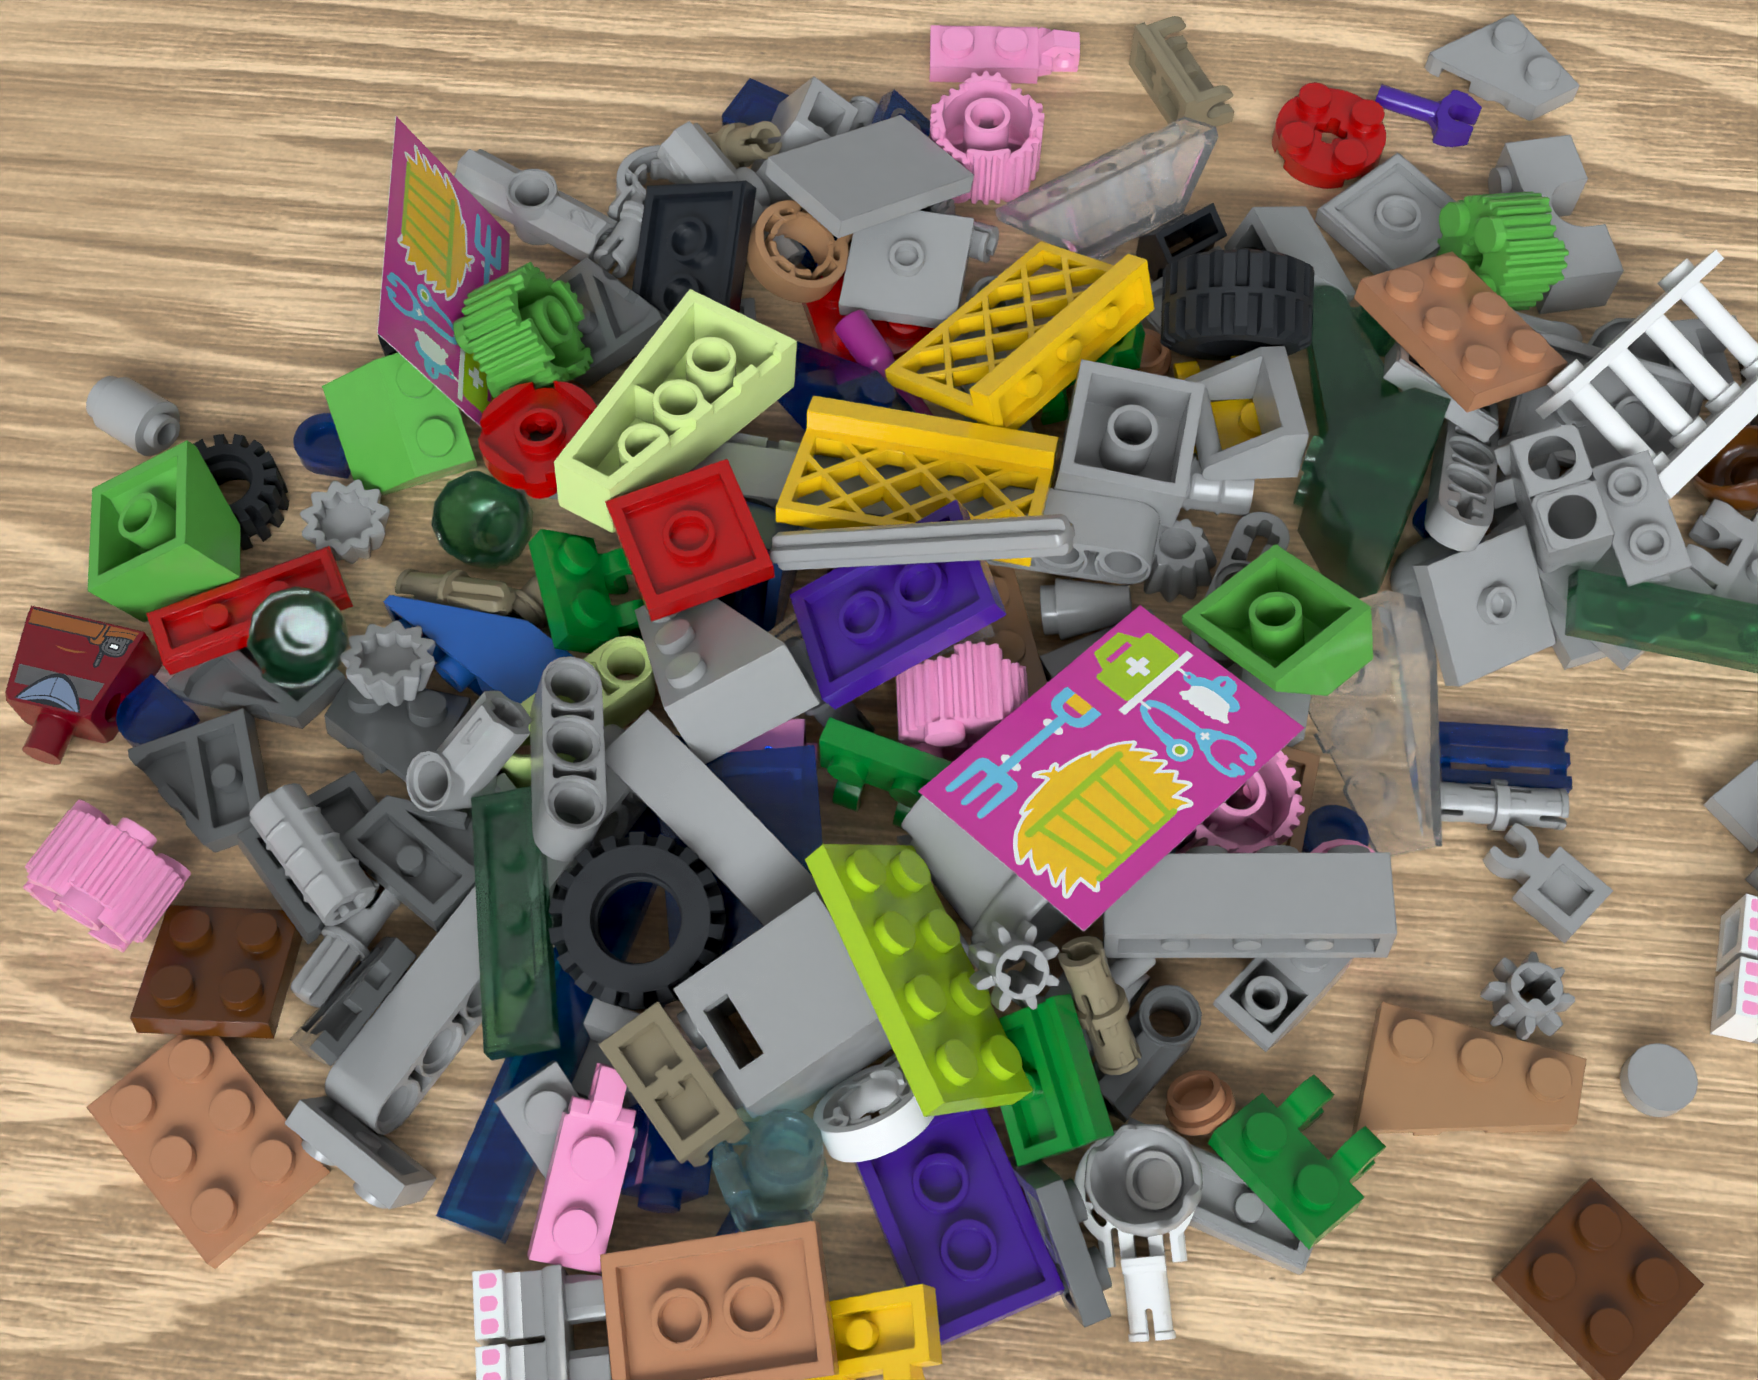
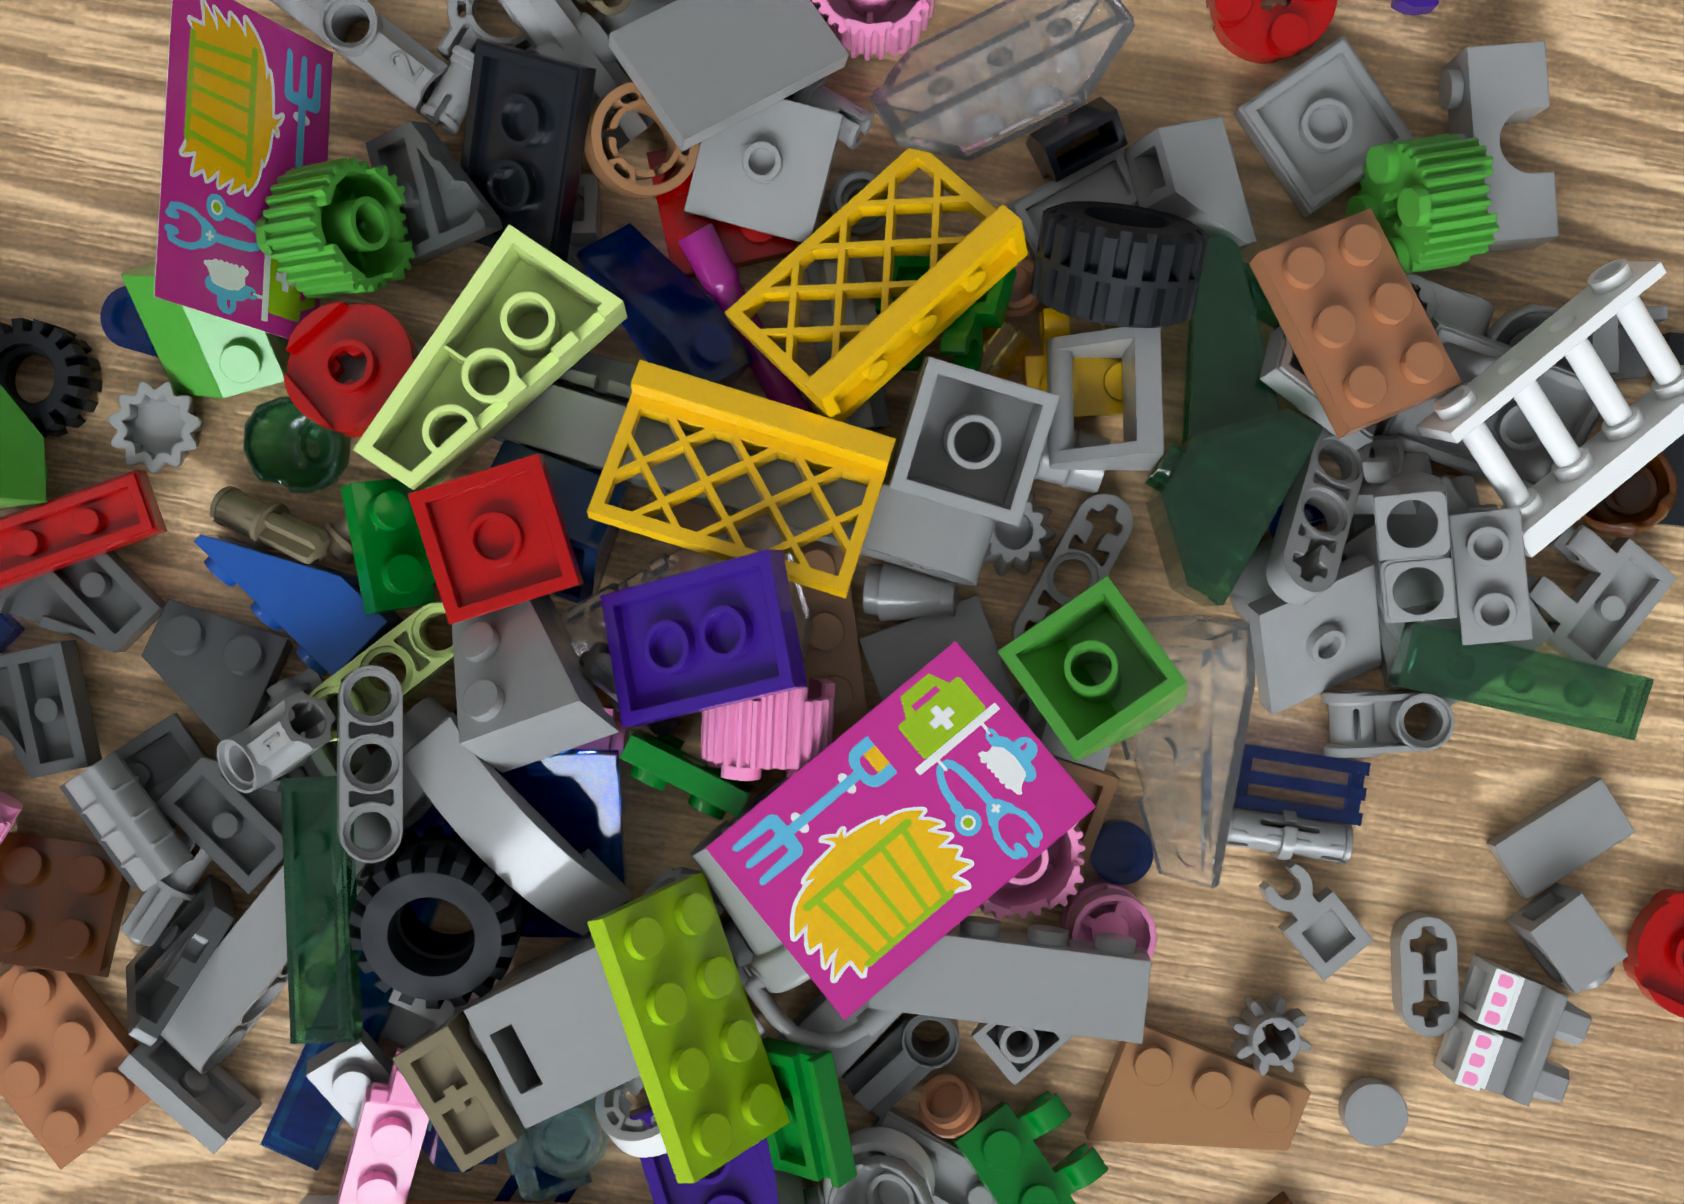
camera: 10 degrees right, 25 degrees up
(297, 637) = (107, 587): clear green hair -> none
(389, 663) = (198, 614): light grey piece -> none
(924, 542) = (730, 601): light grey axle -> none
(1012, 946) = (778, 1031): light grey gear -> none
(1100, 1005) = (859, 1054): dark tan pin -> none
(1559, 689) = (1373, 722): none -> light grey piece
(1682, 929) = (1440, 973): none -> light grey beam

